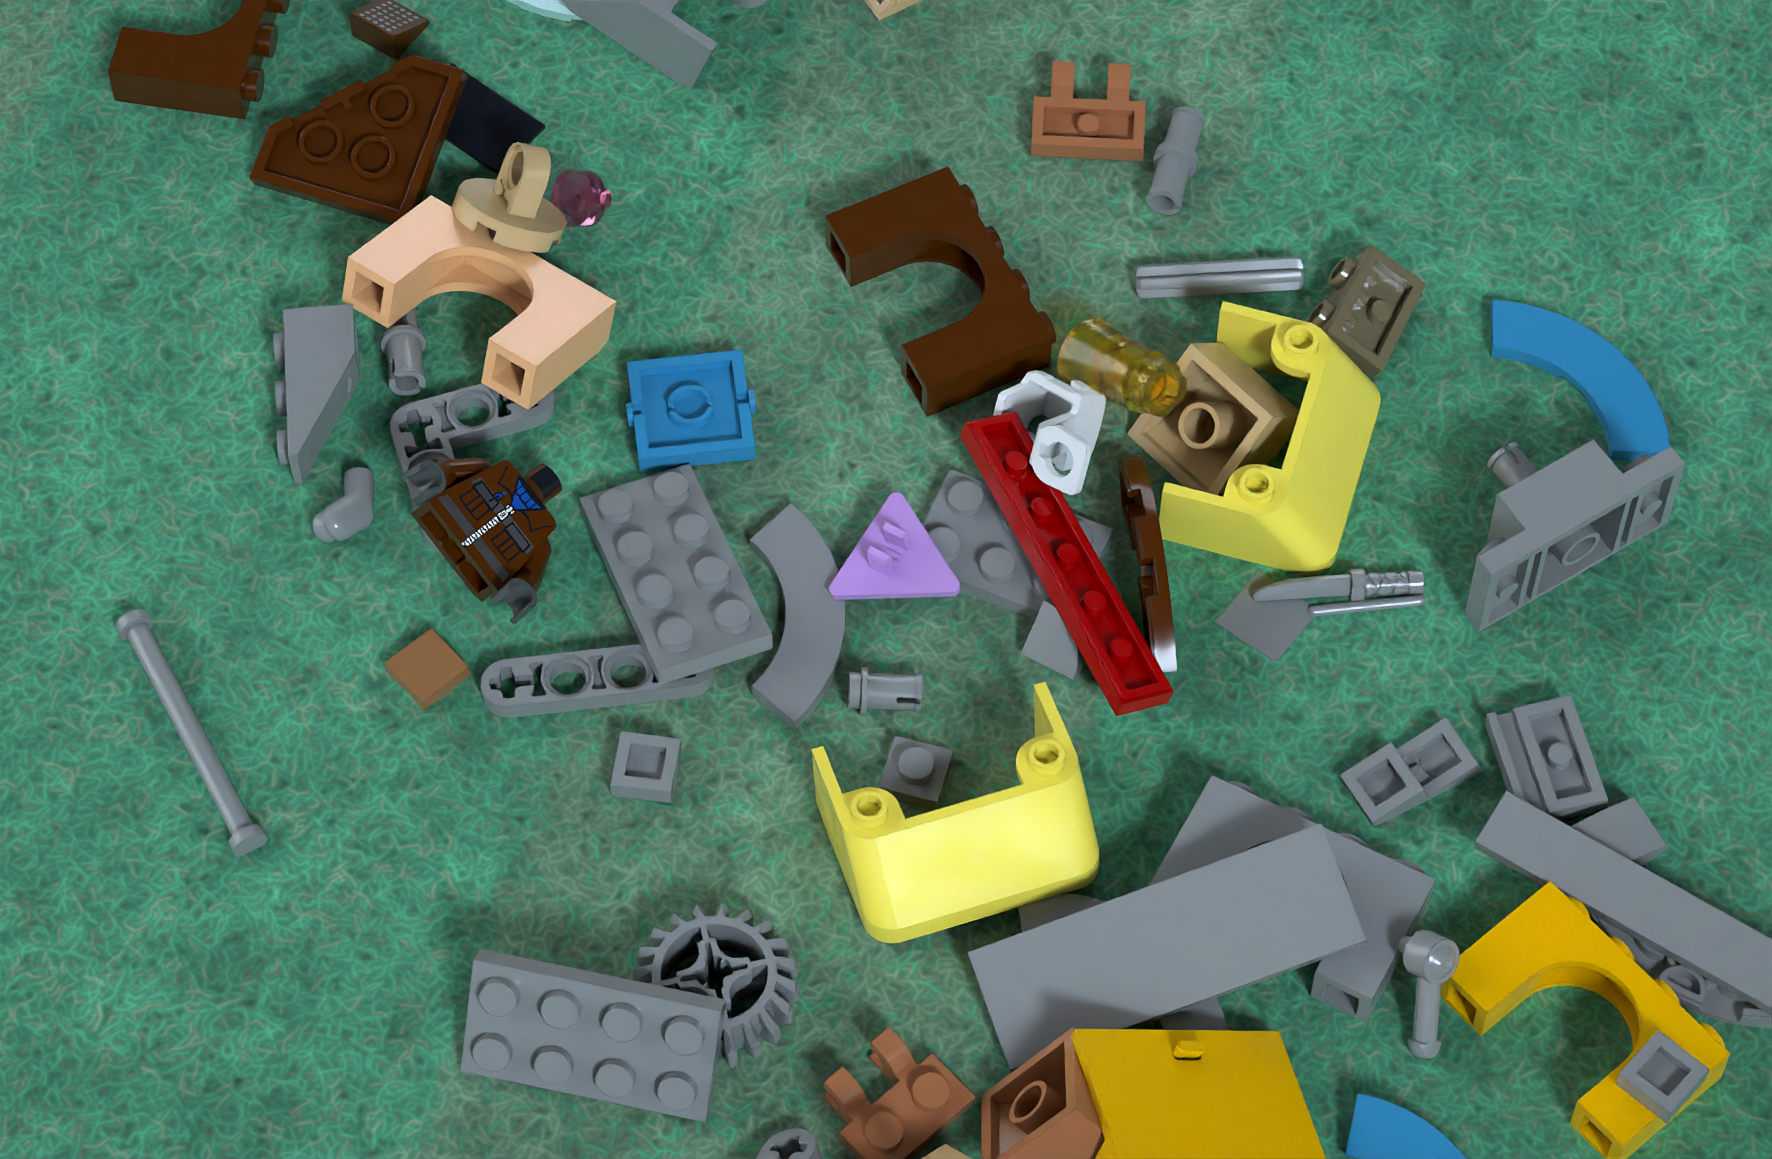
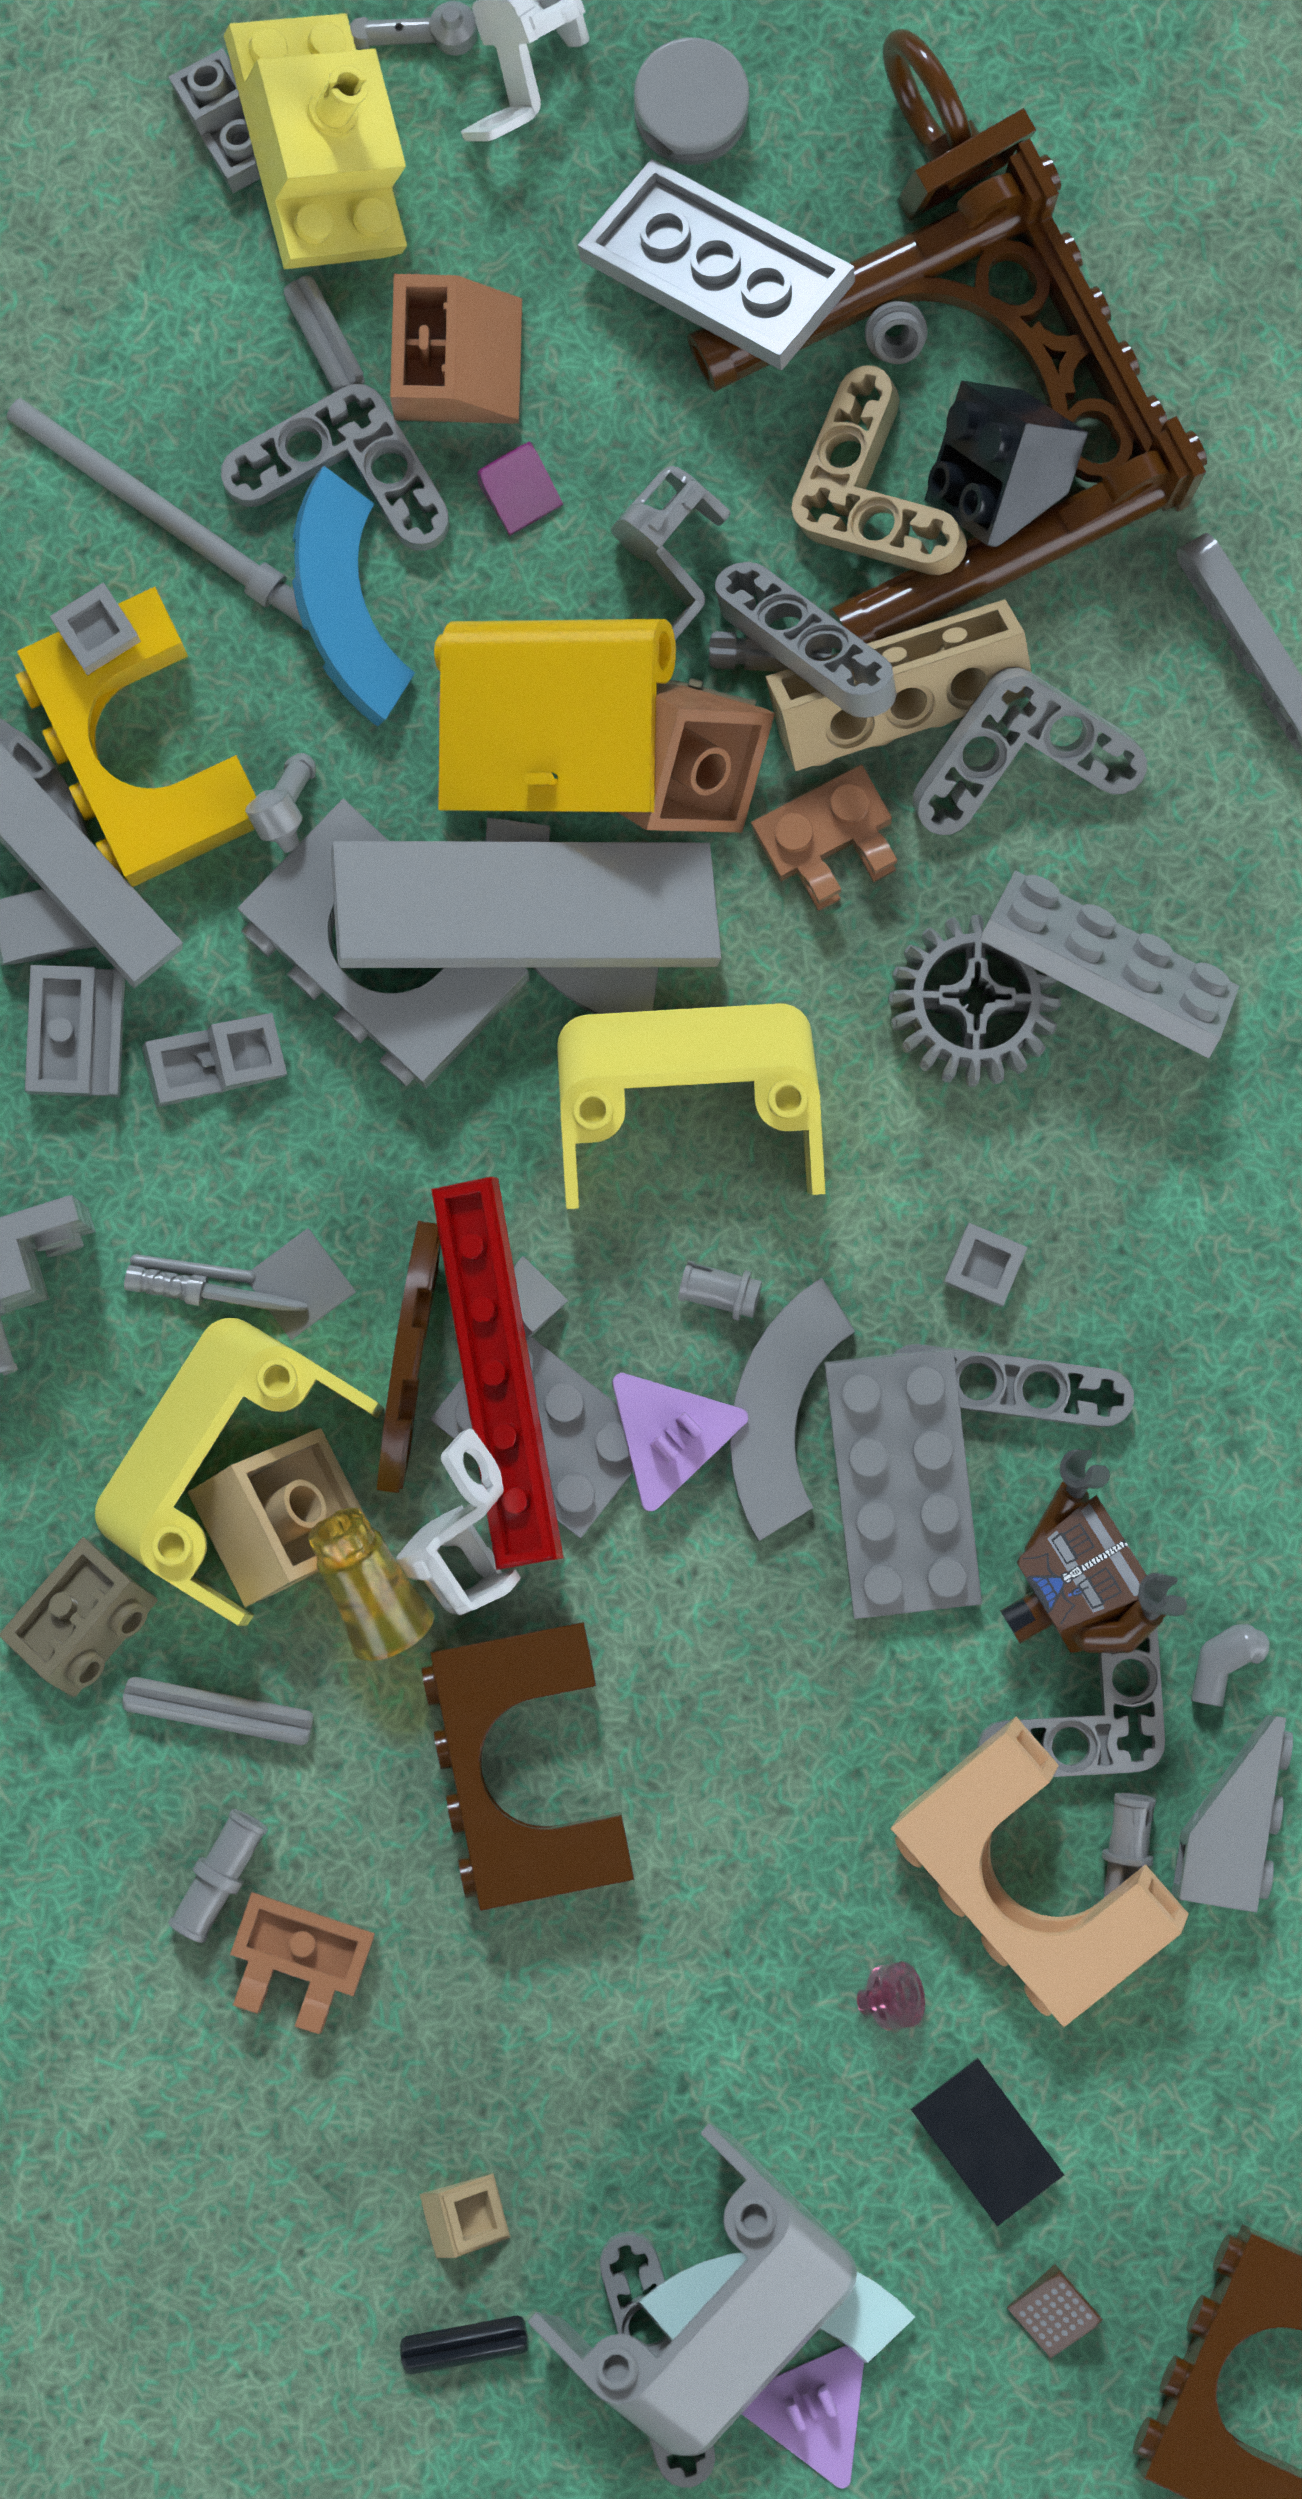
camera: 170 degrees left, 25 degrees up
(366, 144) = (1118, 2129): reddish brown plate -> none
(427, 669) = (1181, 1445): medium nougat tile -> none
(514, 202) = (978, 1985): tan tile -> none
(691, 410) = (837, 1686): dark azure plate -> none
(916, 772) = (712, 1192): light grey plate -> none

